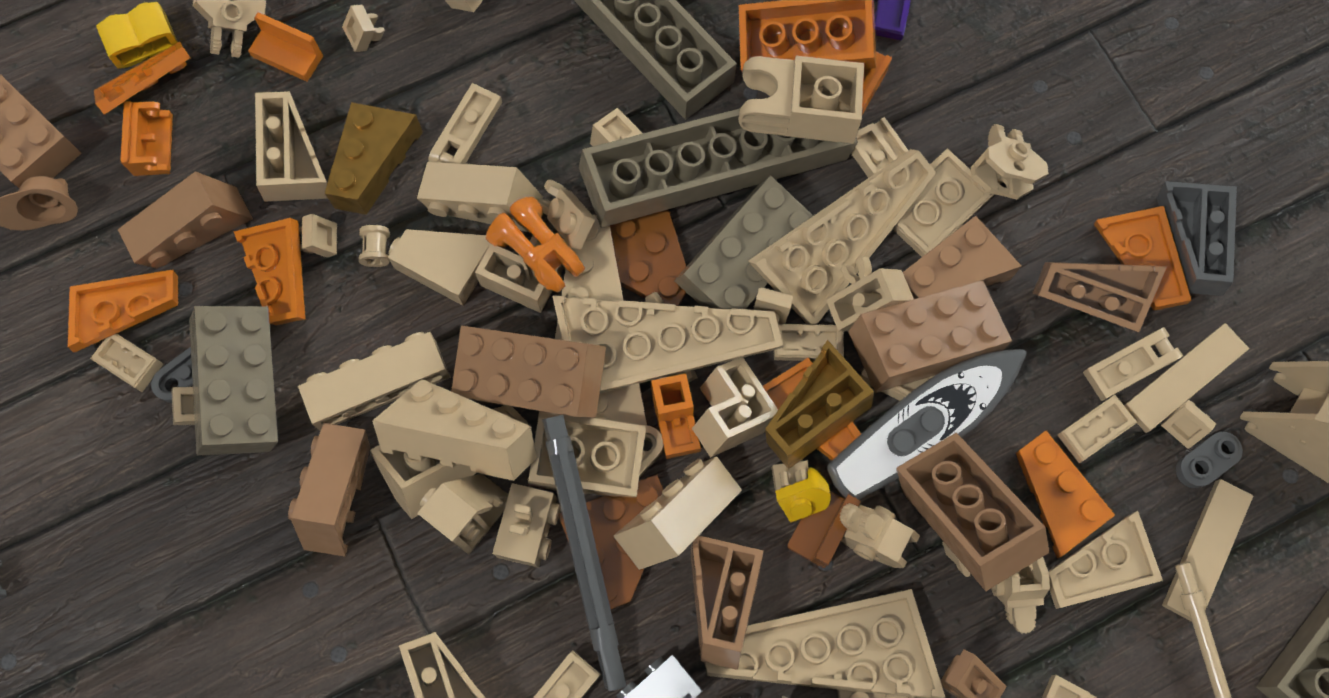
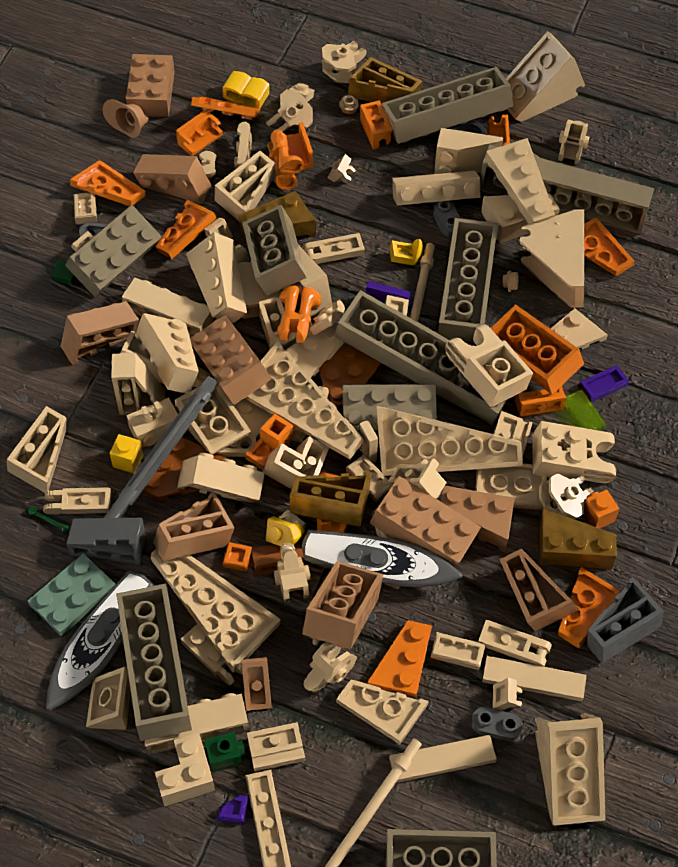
camera: 50 degrees right, 15 degrees down
(197, 467) = (62, 273): none -> dark green tile
(198, 161) = (208, 163): none -> tan piece
(220, 106) = (244, 144): none -> tan hinge
(276, 76) = (285, 165): none -> orange piece
(393, 288) = (219, 276): none -> tan wedge
(424, 196) = (274, 250): none -> dark tan brick
(541, 593) = (126, 453): none -> yellow brick
(545, 56) = (405, 252): none -> yellow plate
(578, 49) = (426, 264): none -> tan bar
(580, 126) = (381, 291): none -> dark purple tile
(784, 571) = (237, 556): none -> orange tile
(914, 57) = (583, 411): none -> clear neon green tile
(957, 113) = (571, 452): none -> tan brick
(1051, 140) = (600, 509): none -> orange brick
(1065, 203) = (575, 543): none -> pearl gold wedge

